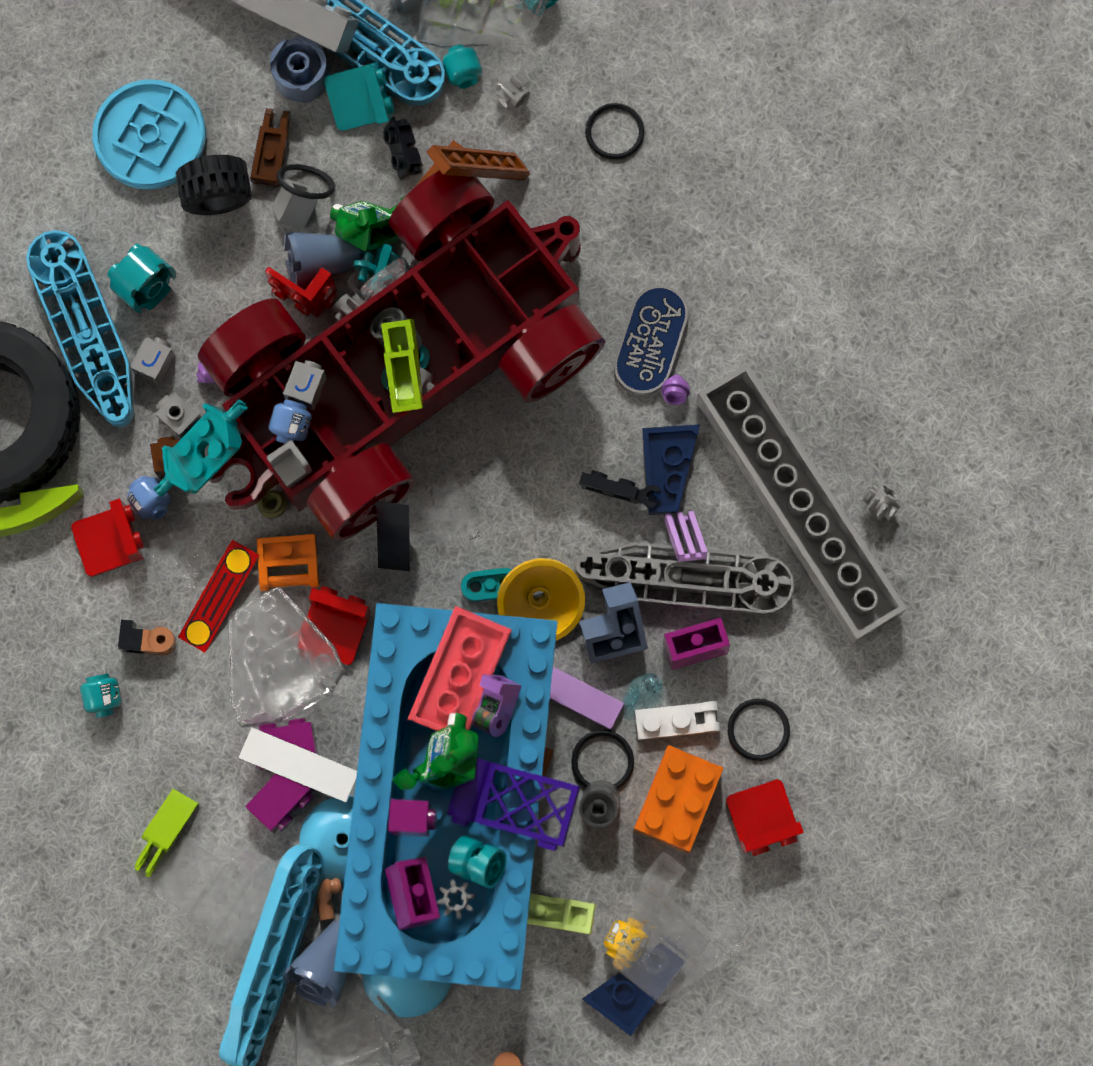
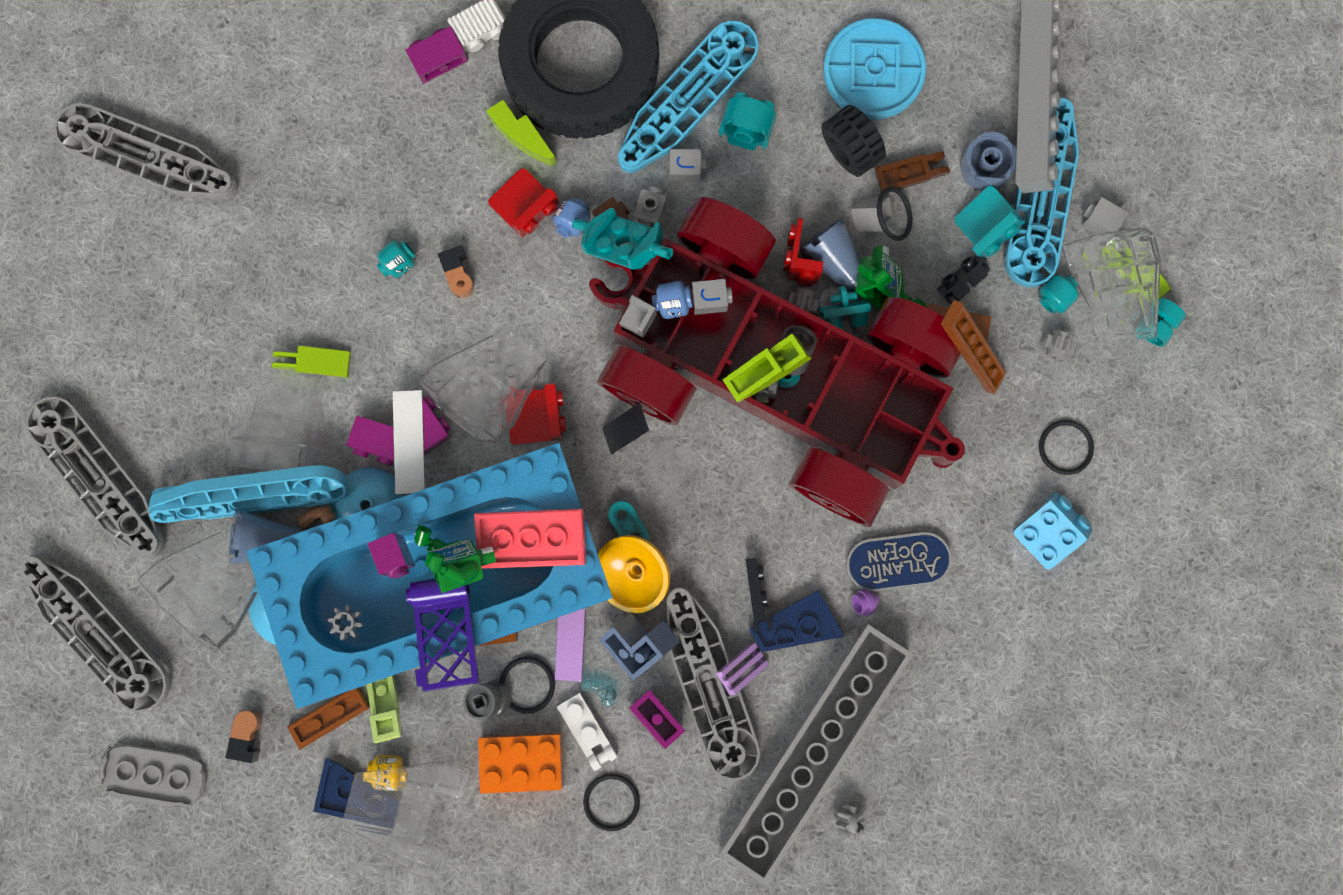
camera: 65 degrees right, 5 degrees up
(218, 596) = (519, 312): sticker -> none
(272, 495) = (606, 314): olive plate -> none
(287, 552) = (579, 350): orange plate -> none
(385, 277) = (838, 318): clear plate -> none
(412, 893) = (332, 585): magenta brick -> none
(477, 861) = (381, 626): teal wheel -> none
(495, 704) = (518, 580): medium lavender leg -> none
(541, 980) = (328, 717): none -> dark orange tile
(690, 180) = (1053, 531): none -> medium azure bracket
(763, 817) = (538, 841): red bracket -> none

